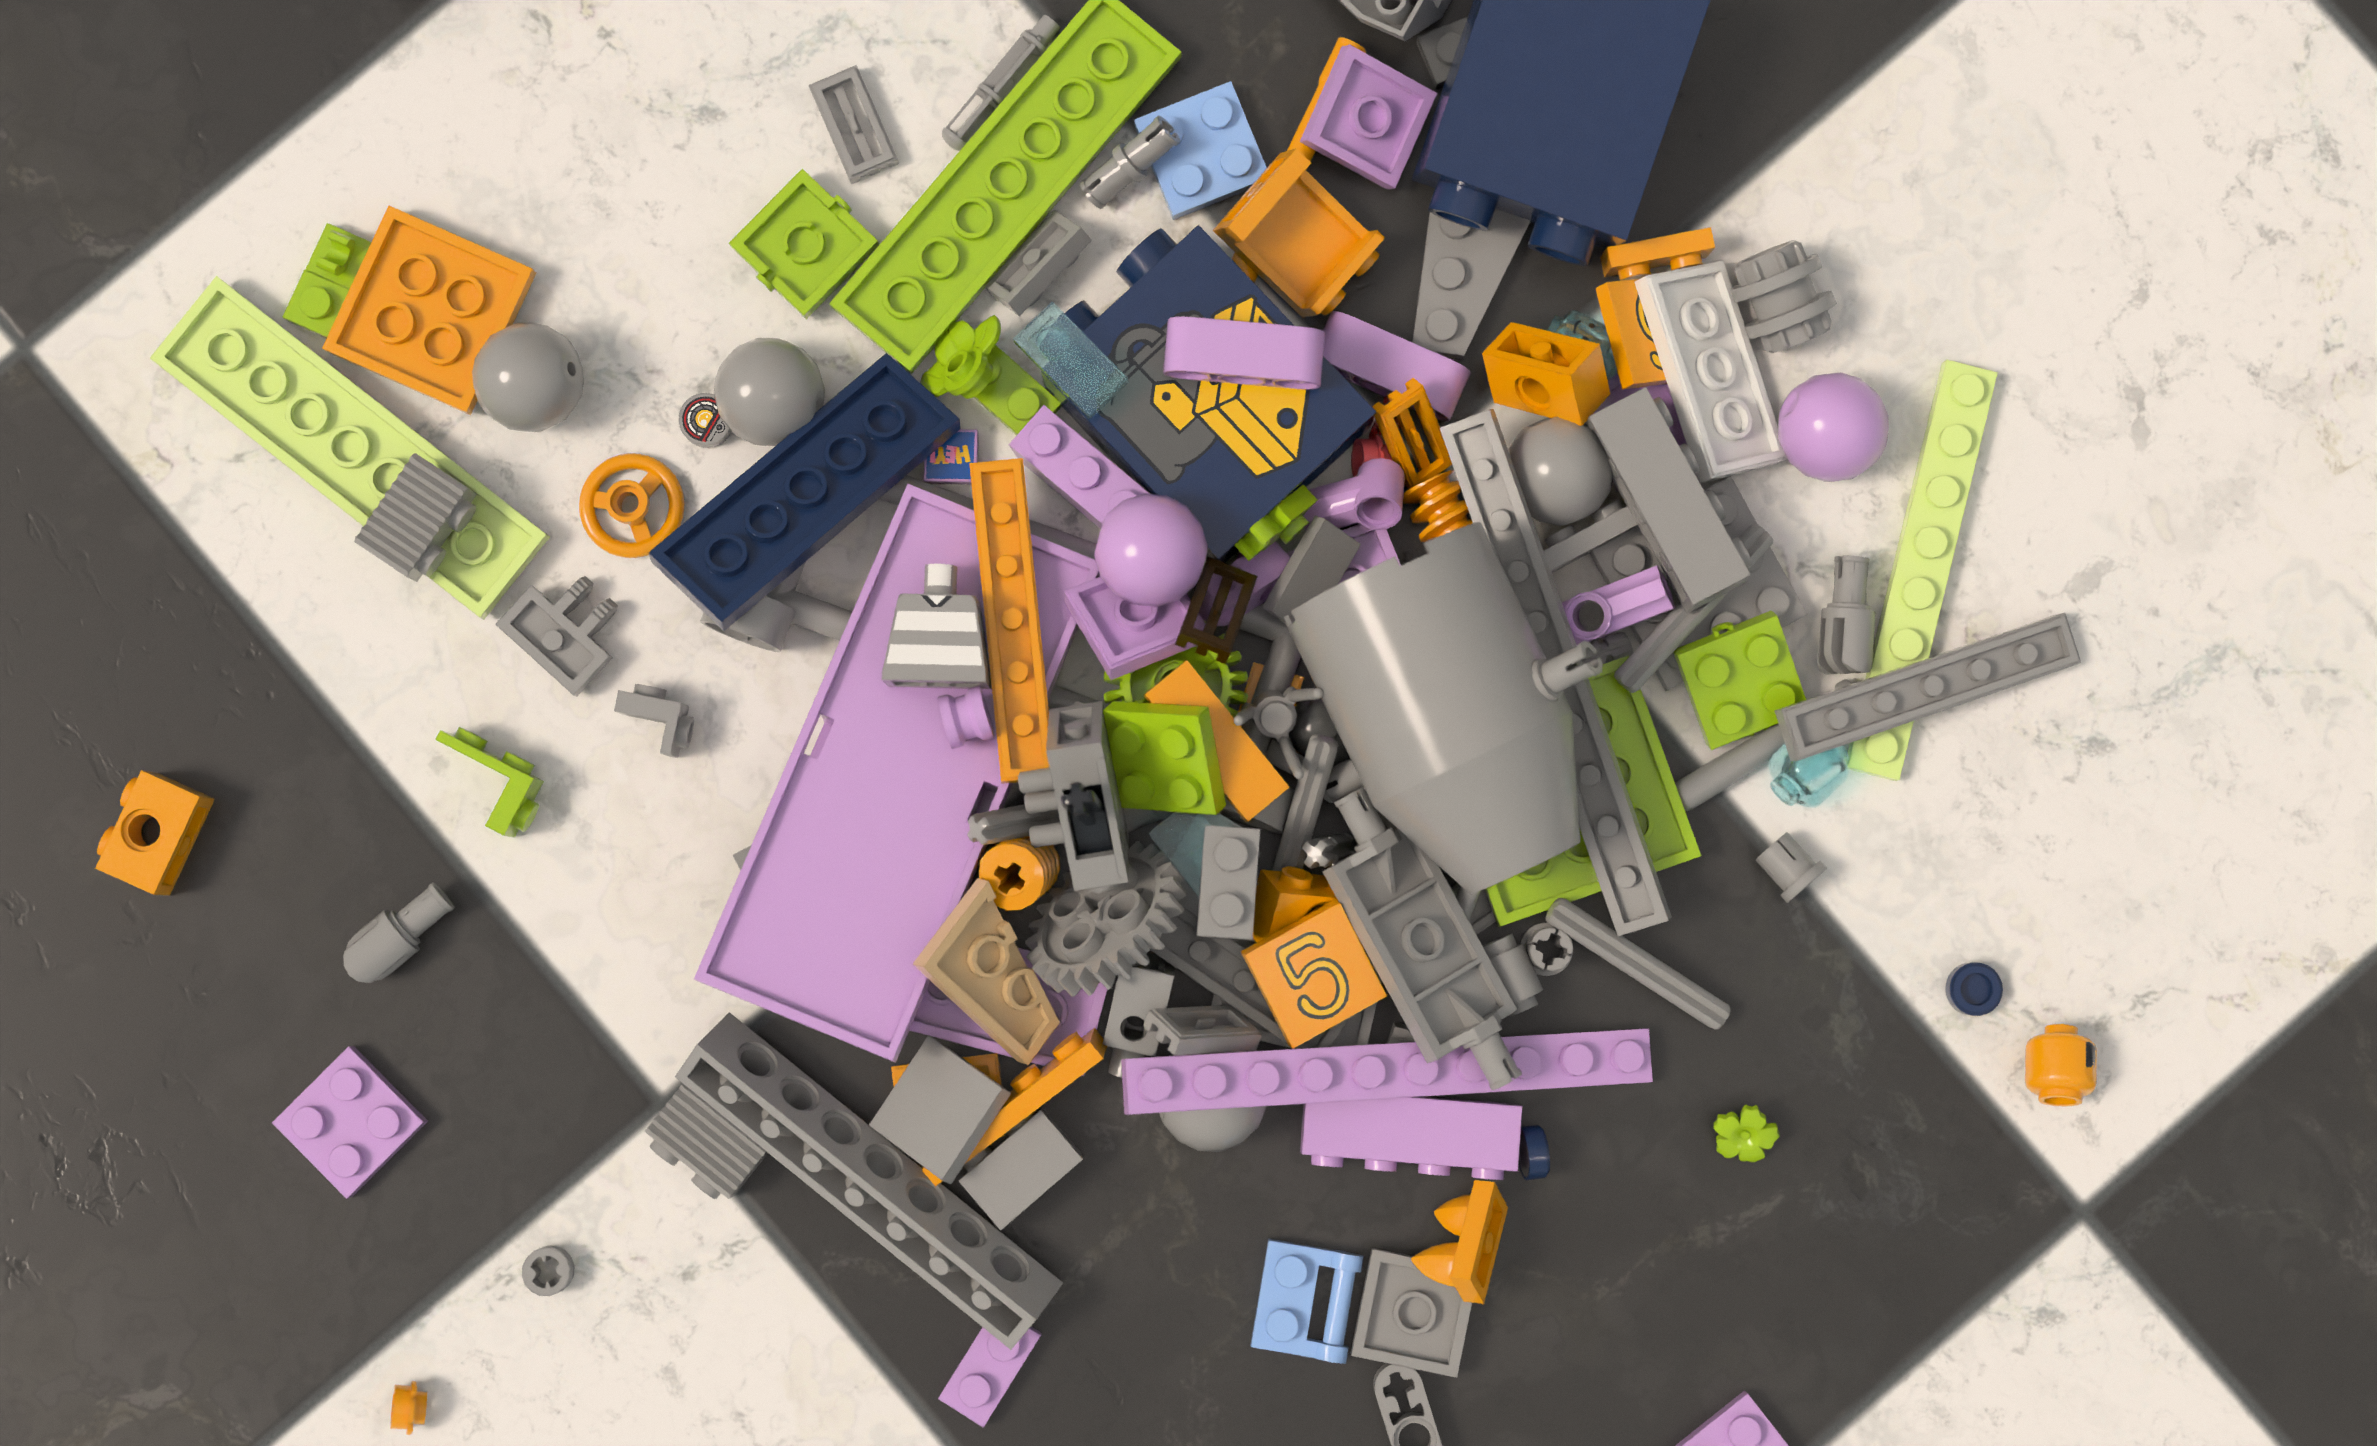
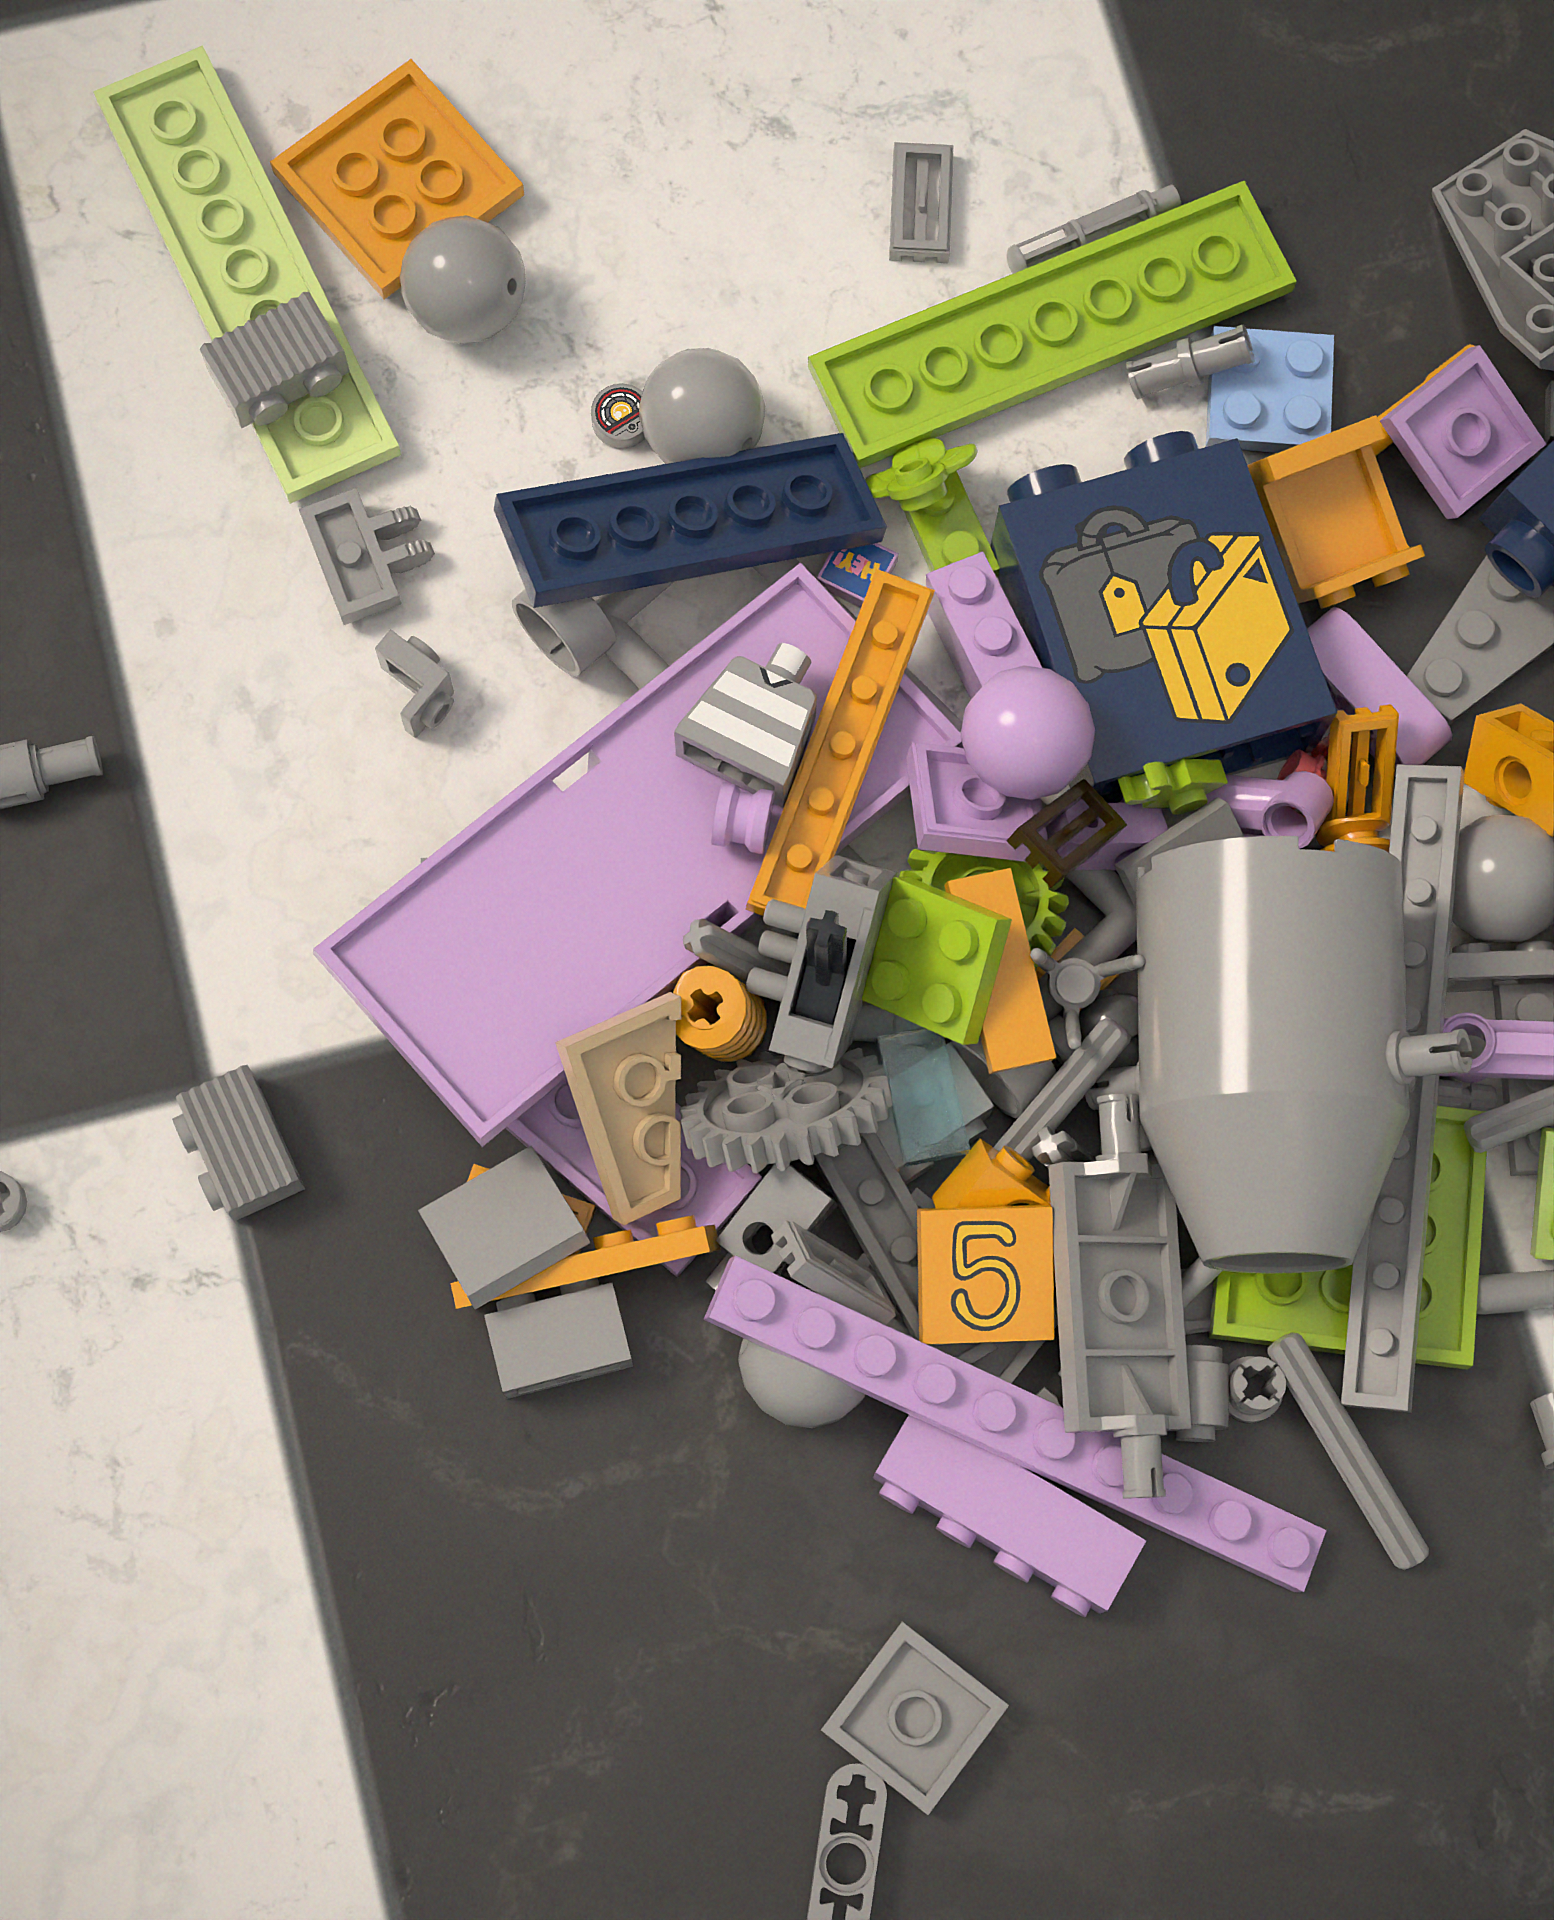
camera: 25 degrees right, 10 degrees down
(326, 280) = (307, 103): lime plate -> none
(516, 804) = (226, 695): lime bracket -> none
(612, 502) = (496, 441): light orange piece -> none
(804, 243) = (811, 289): lime plate -> none
(869, 1180) = (389, 1271): light grey brick -> none
(986, 1374) = (414, 1543): lavender plate -> none
(1038, 263) = (1055, 414): light grey plate -> none
(1071, 360) = (1037, 505): clear light blue plate -> none
(1228, 882) = (939, 1124): light grey brick -> none
(1244, 353) = (1225, 581): lavender beam -> none
(1288, 1298) = (781, 1632): light blue plate -> none
(1470, 1262) = (1007, 1686): light orange tile -> none
(1534, 1153) = (1133, 1604): dark blue tile -> none
(1745, 1135) = (1382, 1704): lime plant -> none

